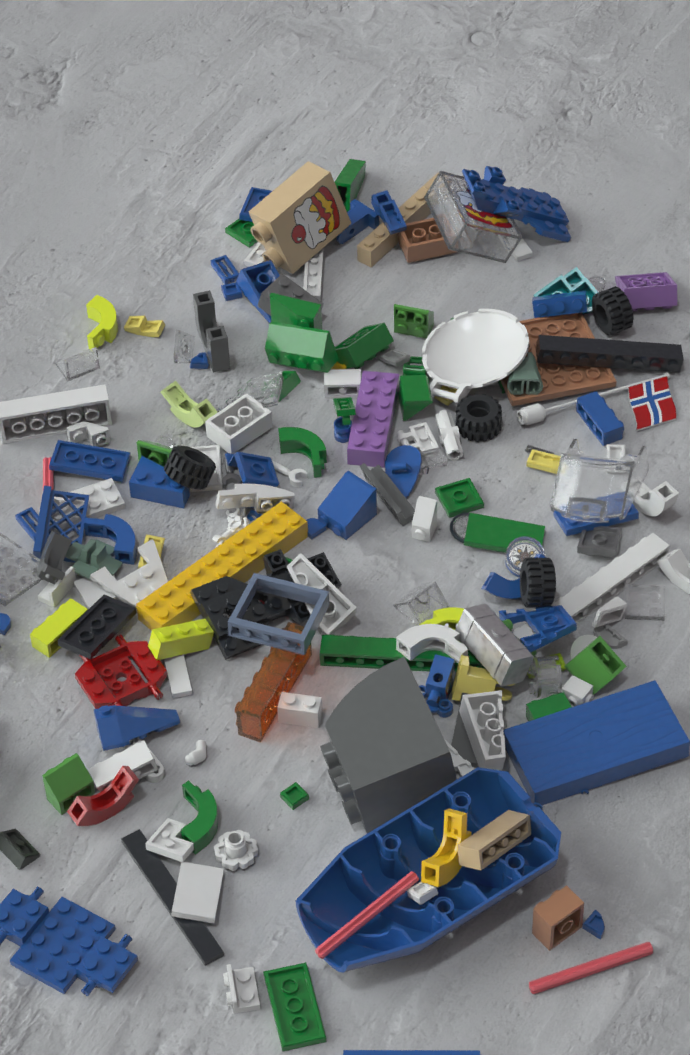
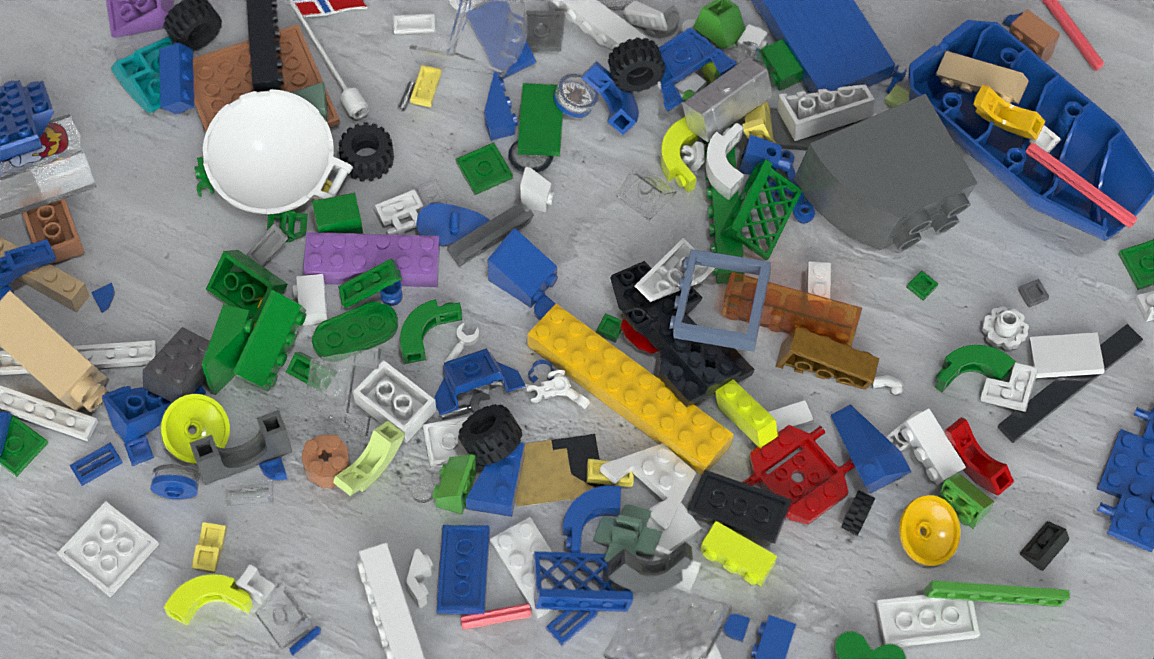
camera: 100 degrees left, 15 degrees up
(37, 746) = (938, 526): none -> yellow dish
(58, 375) = (305, 640): none -> blue piece
(73, 706) = (858, 512): none -> black tyre
(107, 346) = (255, 585): none -> white panel
(154, 273) = (108, 549): none -> white plate
(167, 522) = (556, 470): none -> pearl gold sticker
(188, 303) = (174, 481): none -> blue piece
(198, 382) = (322, 449): none -> nougat brick
(220, 710) = (827, 359): none -> pearl gold wedge
(233, 306) = (198, 411): none -> neon yellow dish
(253, 495) = (518, 367): white slope -> none
(272, 883) = (1033, 293): none -> flat silver tile
(312, 410) = (355, 330): none -> green tile
(366, 272) = (104, 296): none -> blue tile
(376, 651) = (746, 201): none -> green fence
(413, 321) = (201, 230): bright green slope -> none
(449, 435) = (391, 182): white piece -> none
(518, 505) = (497, 113): none -> blue slope
(600, 418) = (356, 38): blue brick -> none

